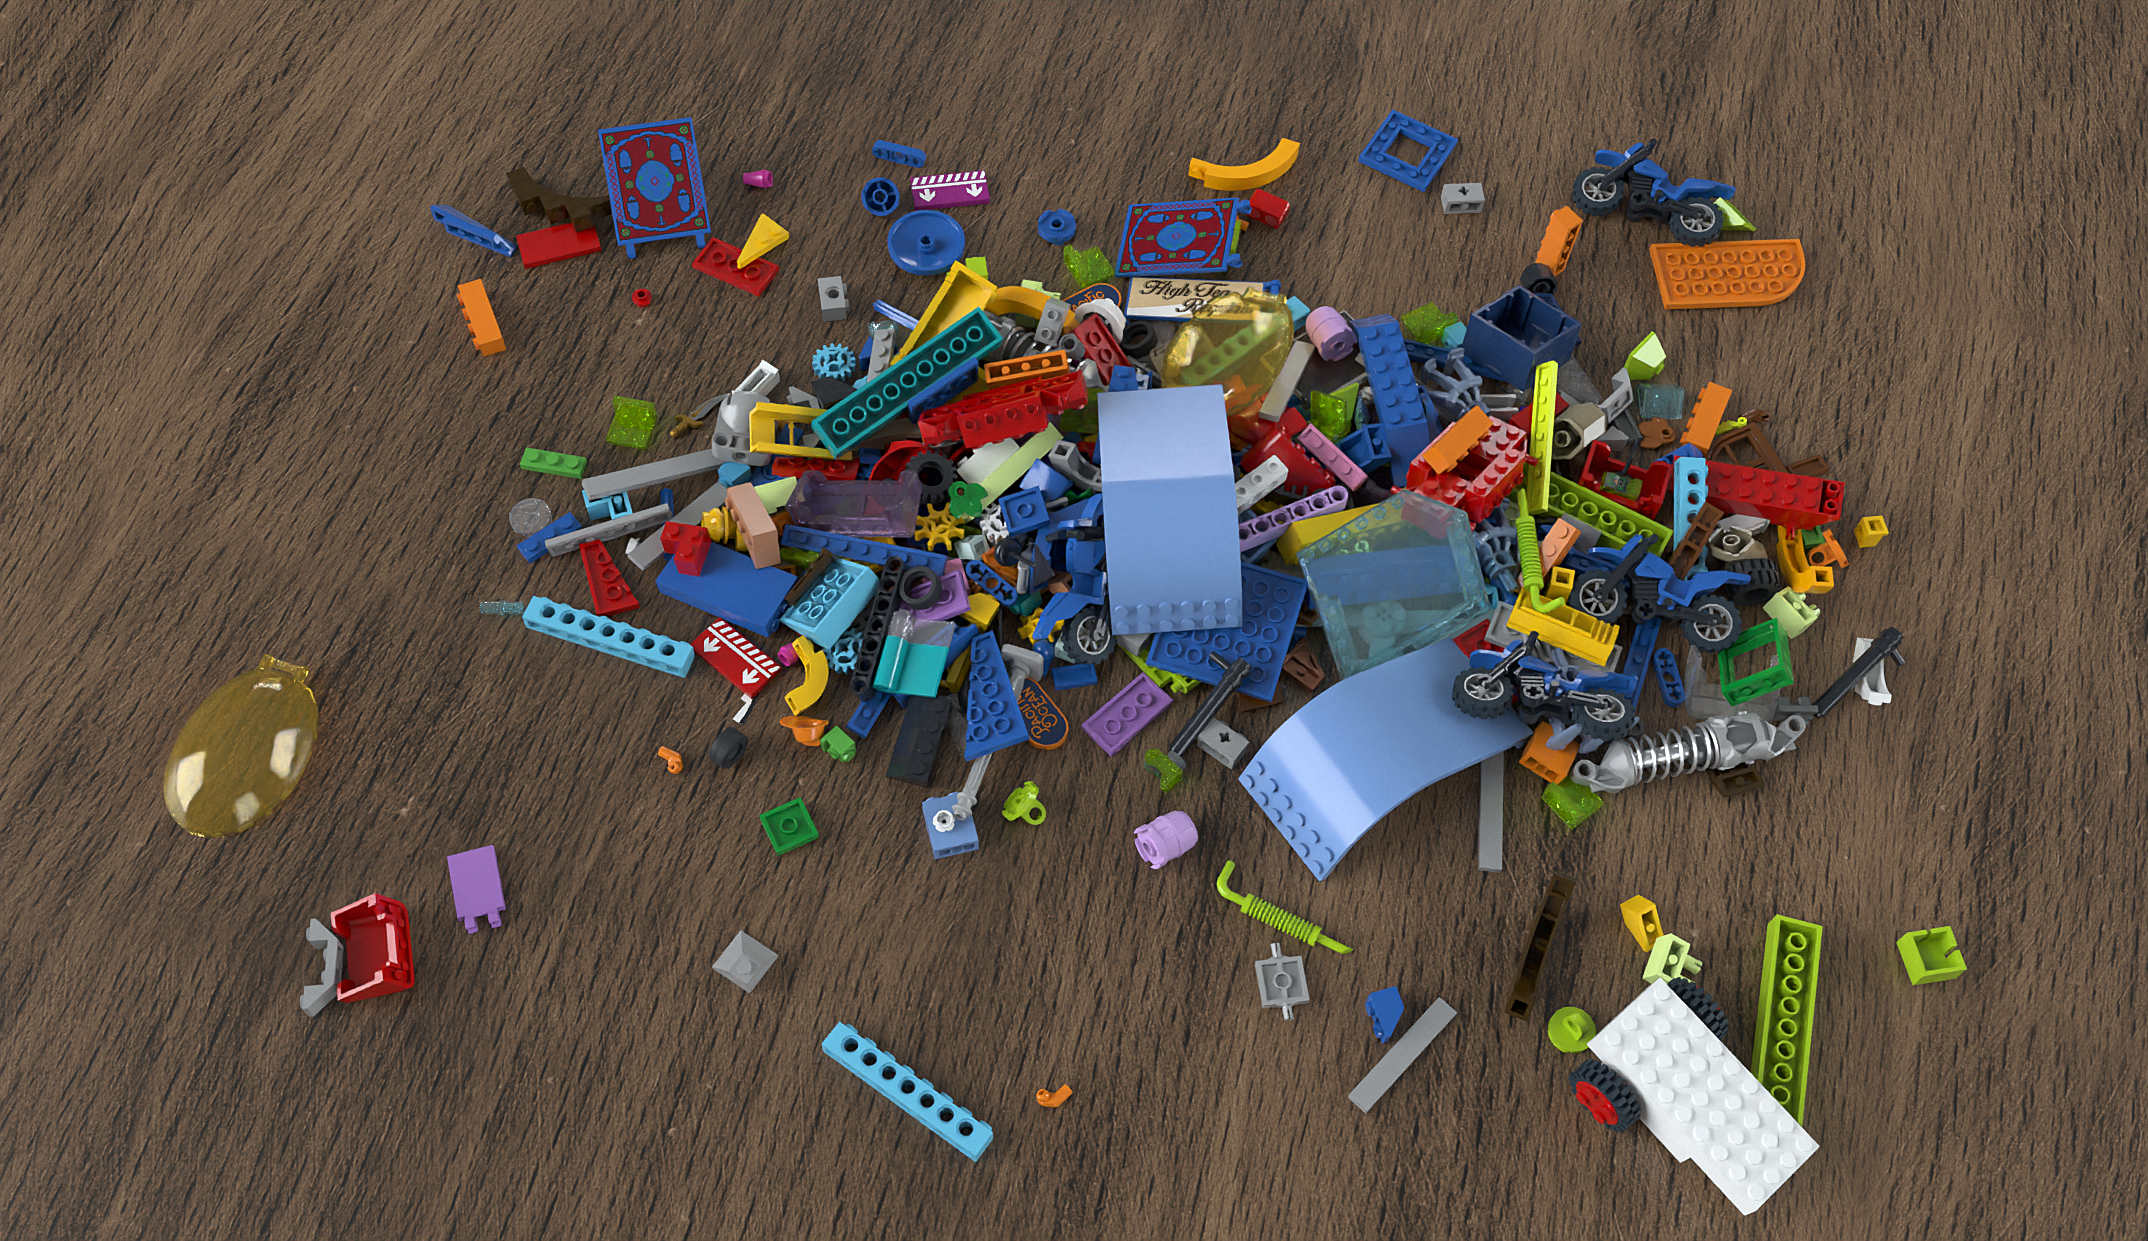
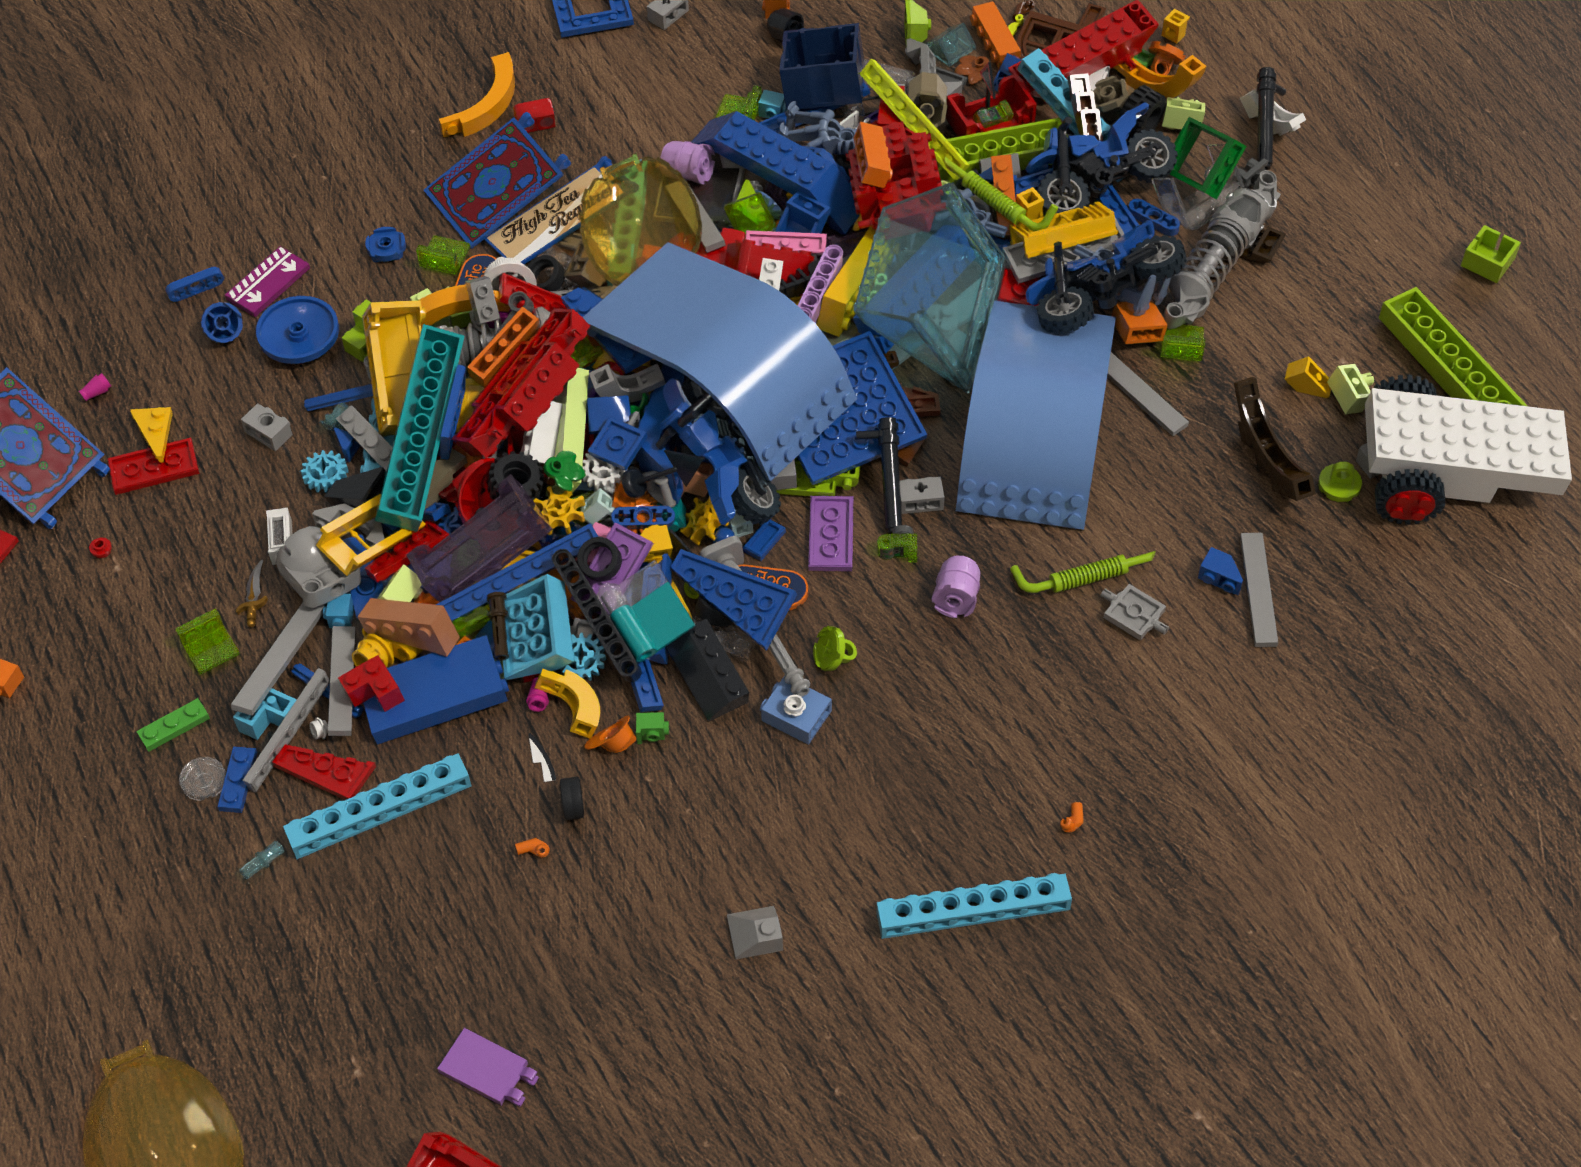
camera: 40 degrees left, 5 degrees down
(735, 658) = (496, 737): red tile -> none
(789, 826) = (679, 813): green plate -> none

